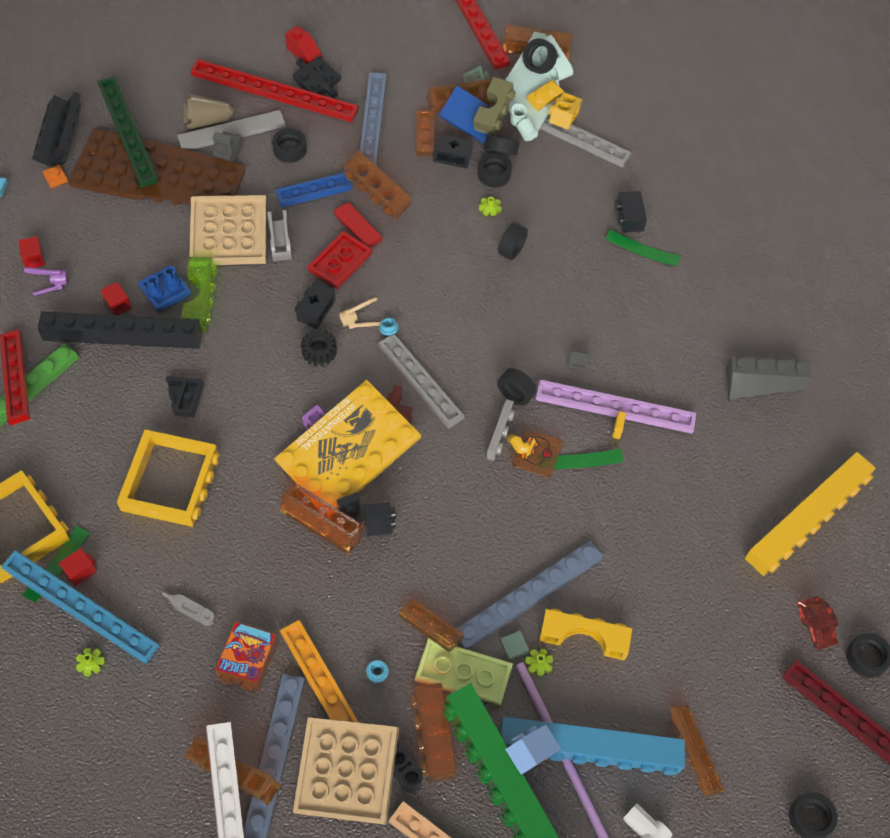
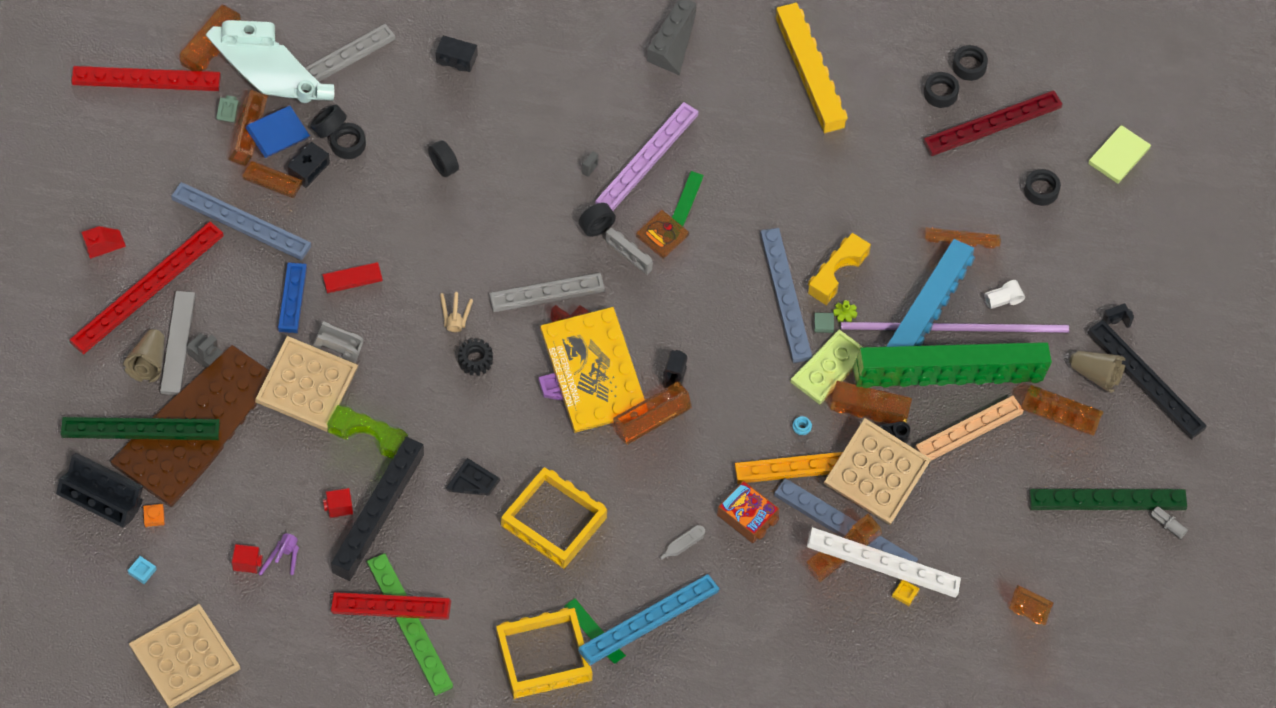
camera: 65 degrees left, 0 degrees up
(78, 566) = (608, 612): red brick -> none
(89, 662) = (698, 631): lime plant -> none
(164, 288) = (345, 459): blue plate -> none
(289, 156) = (226, 311): black tyre -> none
(315, 305) = (429, 343): black brick -> none
(317, 77) = (148, 244): black plate -> none
(339, 260) = (387, 305): red plate -> none
(351, 507) = (651, 387): black bracket -> none
(360, 163) = (347, 229): clear orange brick -> none
(388, 326) = (478, 291): medium azure plate -> none
(431, 625) = (783, 371): clear orange plate -> none
(490, 119) = (278, 93): olive arch -> none
(490, 206) = (386, 162): lime plant -> none
(518, 444) = (650, 242): yellow arm -> none
(528, 54) = (244, 55): black tyre -> none
(532, 748) = (925, 331): light blue brick -> none
(544, 95) = (286, 60): yellow plate -> none
(565, 110) = (312, 52): yellow brick -> none
(619, 424) = (667, 162): yellow tile -> none
(642, 249) = (496, 65): green sticker -> none
(821, 619) = (899, 105): clear red brick -> none

